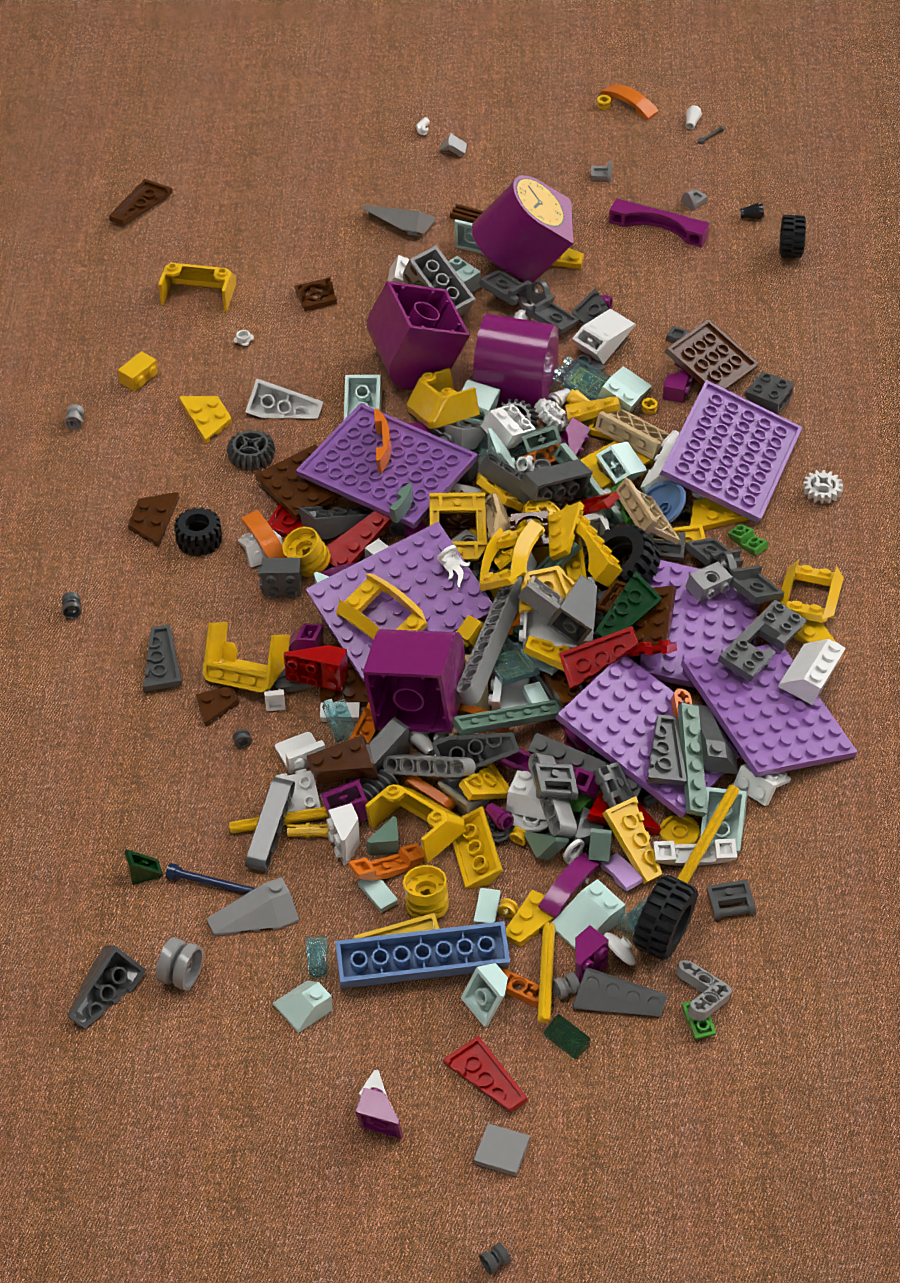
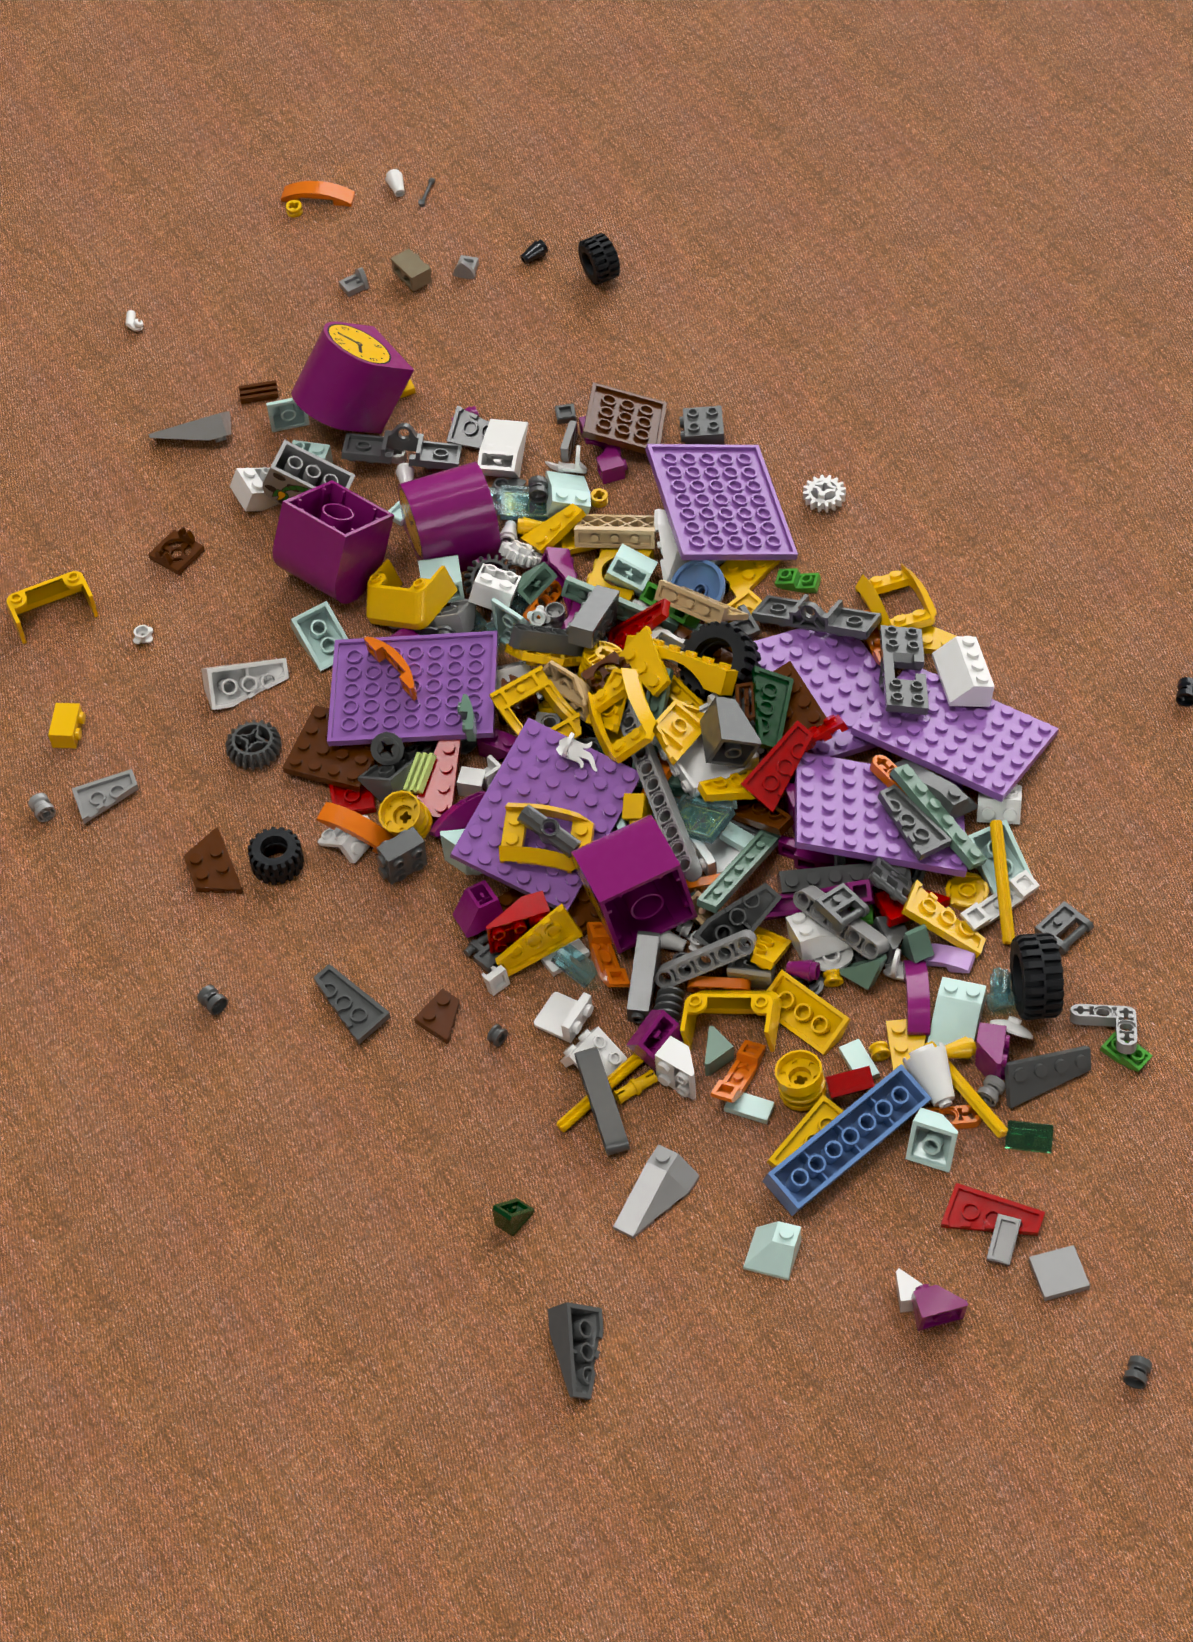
camera: 30 degrees left, 5 degrees up
(123, 429) = (103, 793): none -> light grey wing
(175, 872) = (546, 1200): dark blue piece -> none
(179, 963) = (634, 1283): light grey wheel -> none
(206, 414) = (174, 733): yellow wing -> none
(224, 668) = (441, 972): yellow windscreen -> none
(316, 951) = (743, 1193): clear light blue piece -> none
(328, 491) = (387, 758): none -> dark grey gear
(330, 684) = (544, 938): none -> yellow wing
(343, 761) = (626, 1000): reddish brown wedge -> none
(344, 527) = (419, 775): none -> yellowish green tile
(379, 599) = (538, 823): none -> dark grey piece
(454, 144) = (183, 324): light grey tile -> none
(462, 916) = (850, 1082): none -> red panel
(479, 1099) = (1003, 1239): none -> light grey tile
(527, 943) = (931, 1070): none -> white cone
(541, 597) = (686, 739): light grey slope -> none
(564, 939) = (961, 1048): none -> yellow cone
(604, 372) = (538, 489): none -> dark grey wheel
(628, 213) = (488, 300): magenta arch -> none
(648, 375) = (578, 467): none -> white piece
(649, 181) = (411, 269): none -> dark tan brick
(658, 356) = (569, 441): none -> light grey tile
(709, 581) = (809, 640): light grey brick -> none

